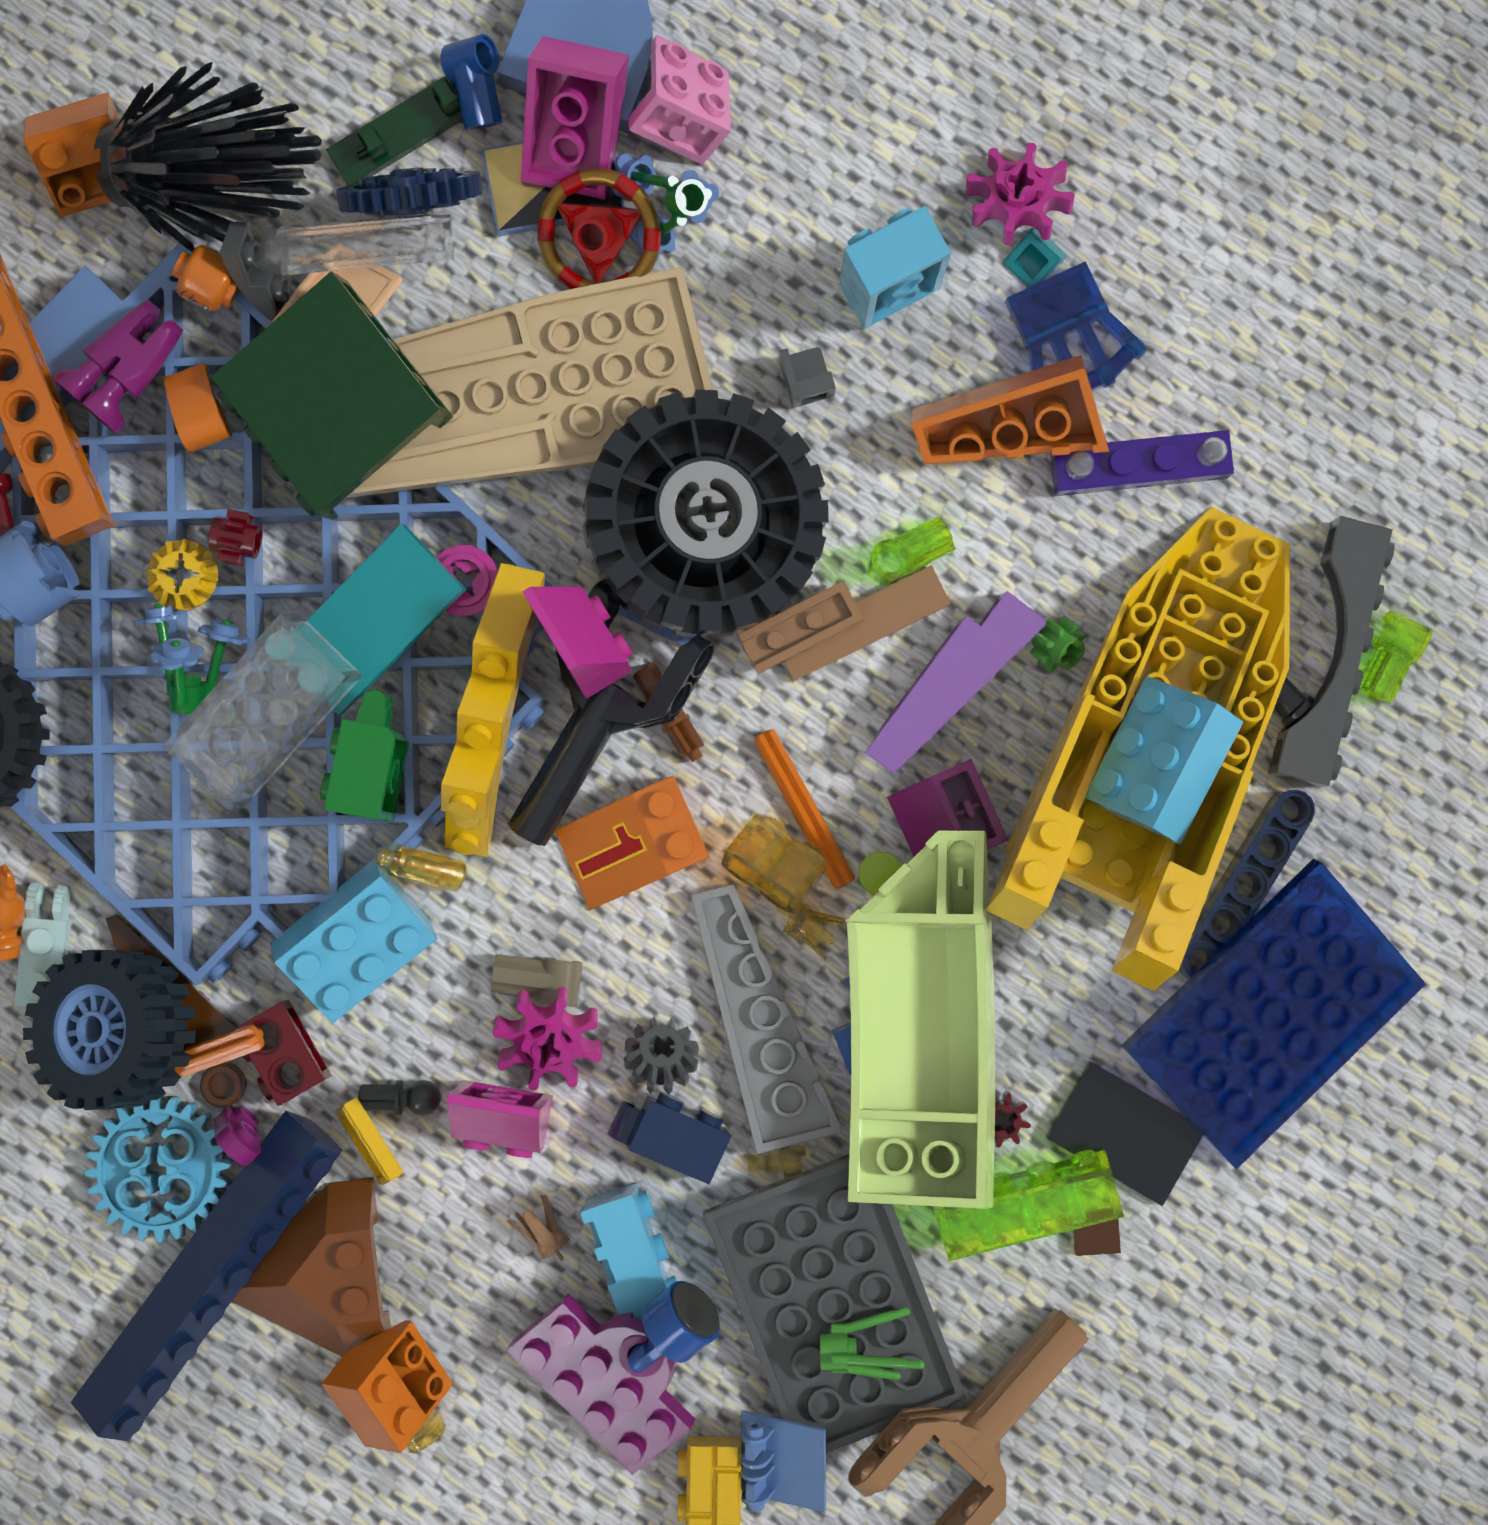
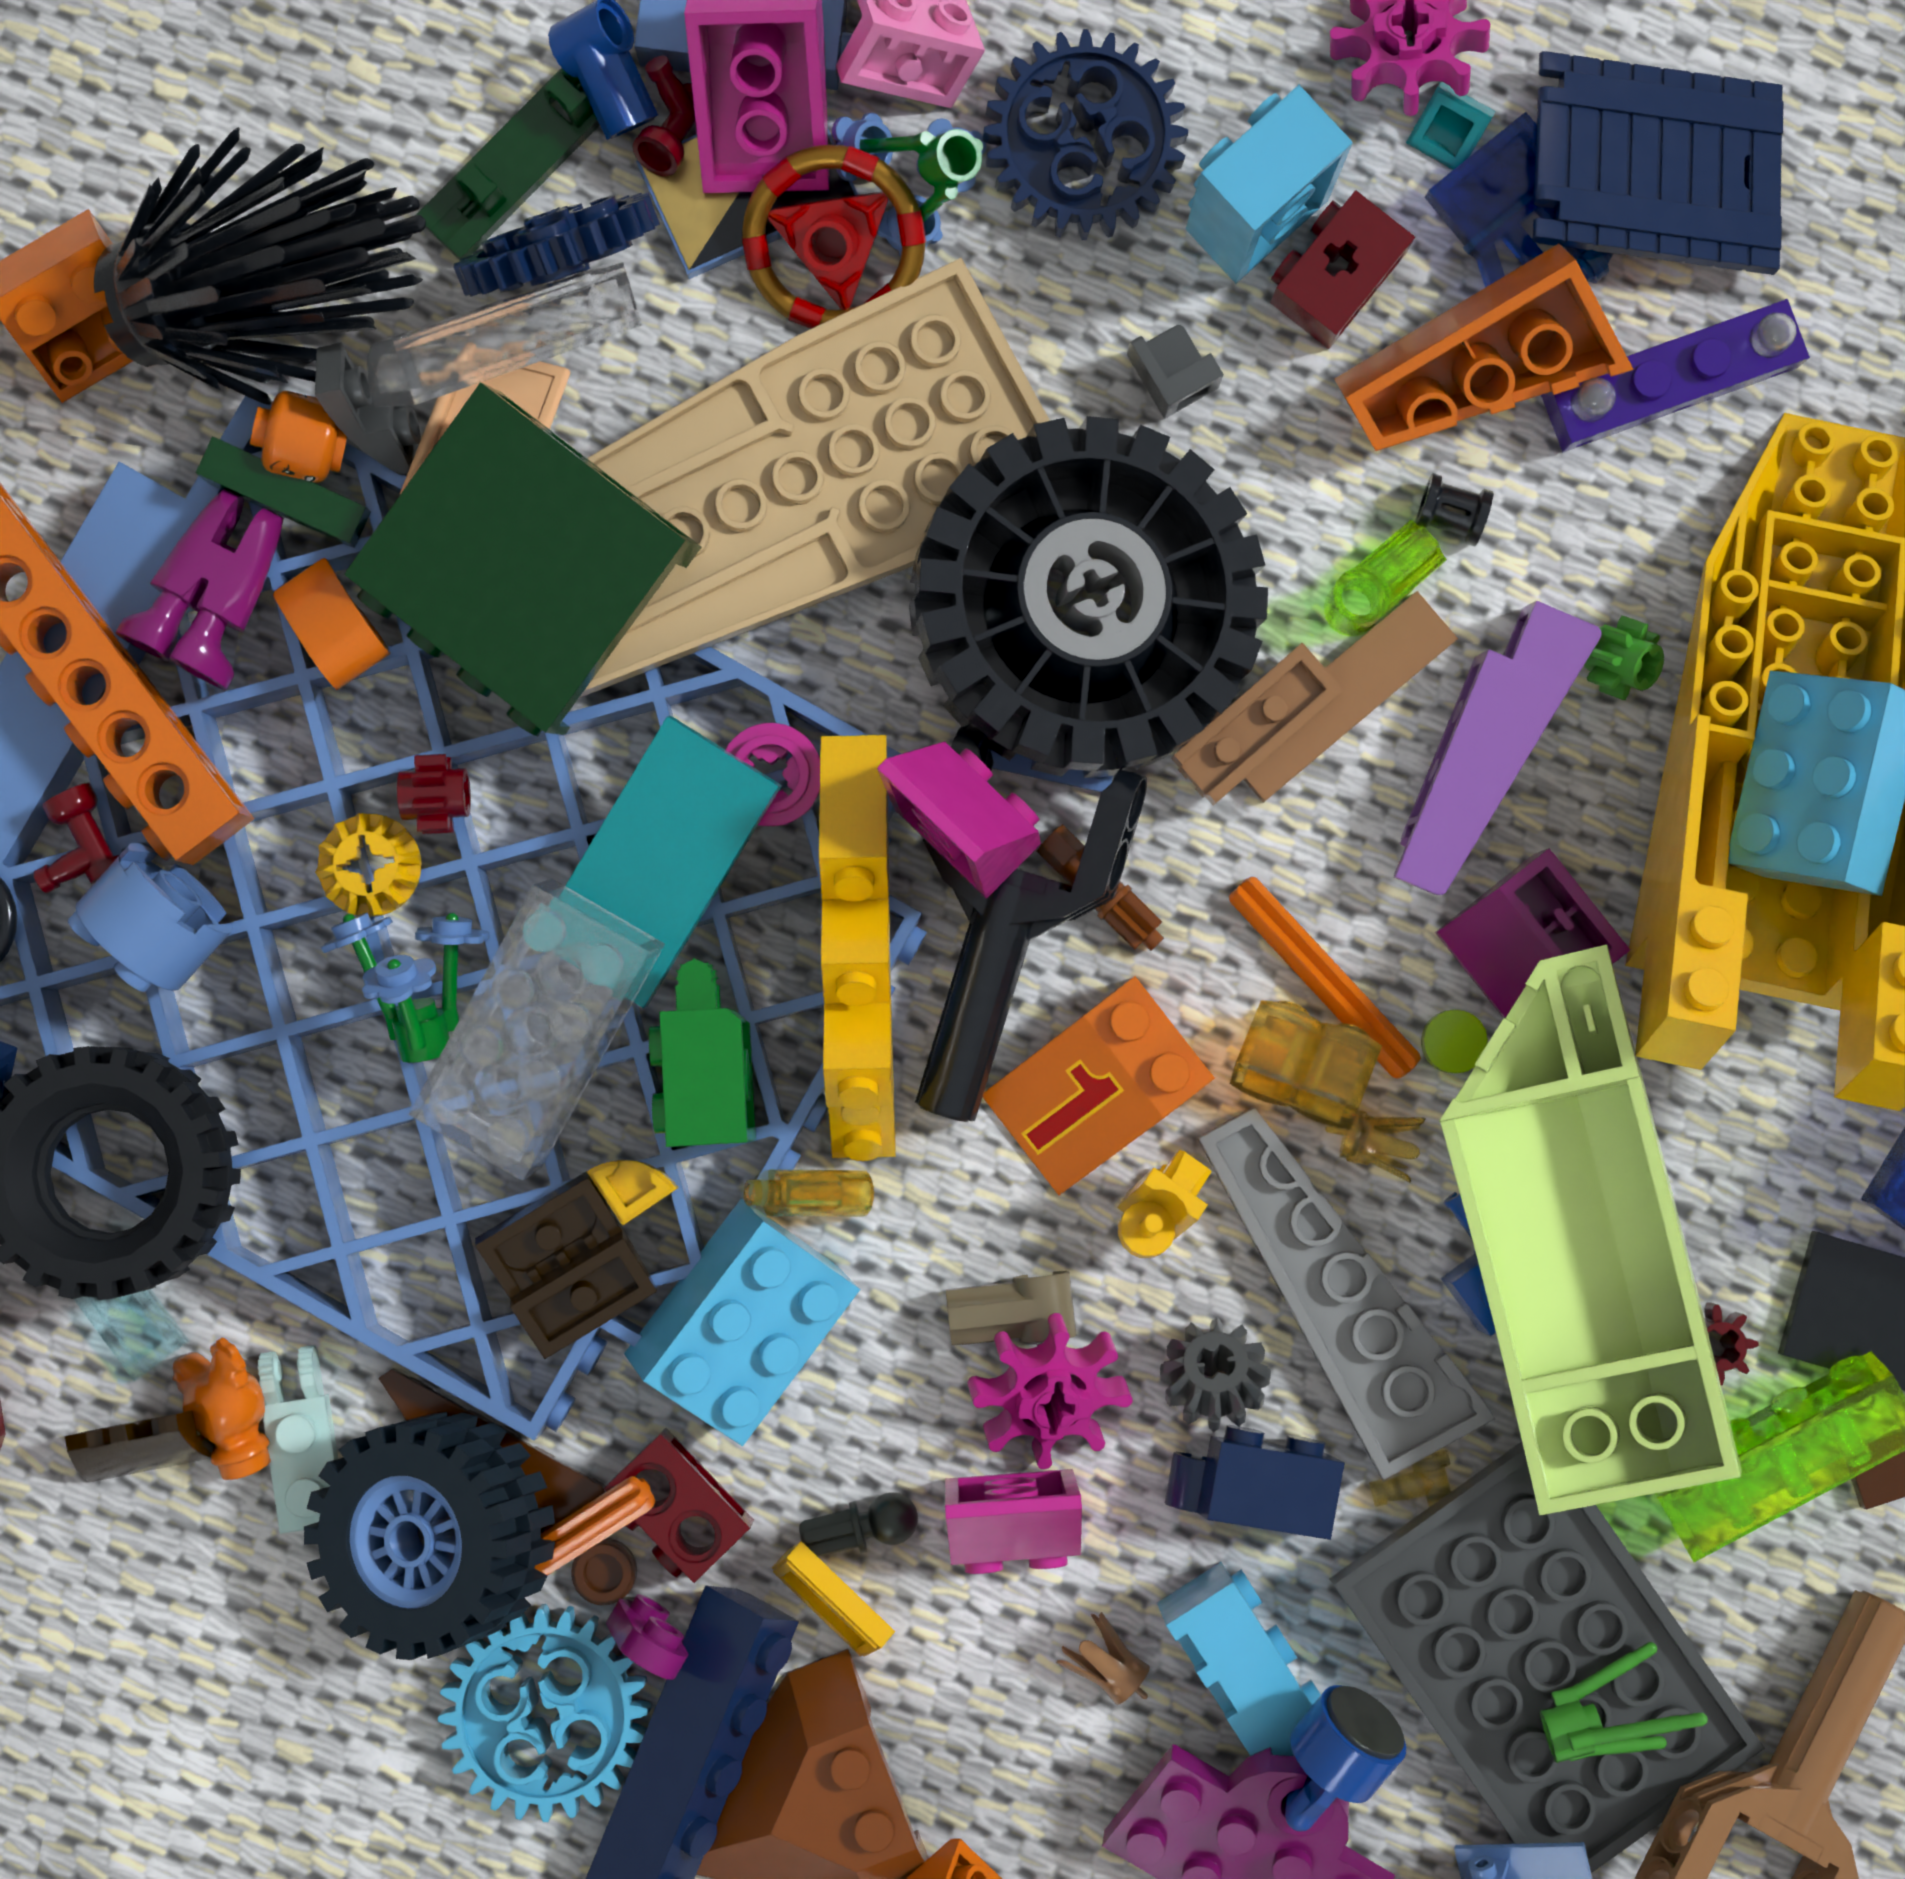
camera: 20 degrees left, 0 degrees up
(188, 315) = (287, 496): none -> dark green piece
(245, 873) = (565, 1265): none -> dark brown slope
(301, 832) = (631, 1186): none -> yellow tile
(499, 143) = (661, 146): none -> dark red piece
(652, 934) = (1162, 1206): none -> yellow hips
(748, 213) = (1134, 111): none -> dark blue gear
(922, 358) = (1362, 237): none -> dark red brick
(964, 503) = (1475, 505): none -> black bush
(1166, 317) = (1659, 163): none -> dark blue door

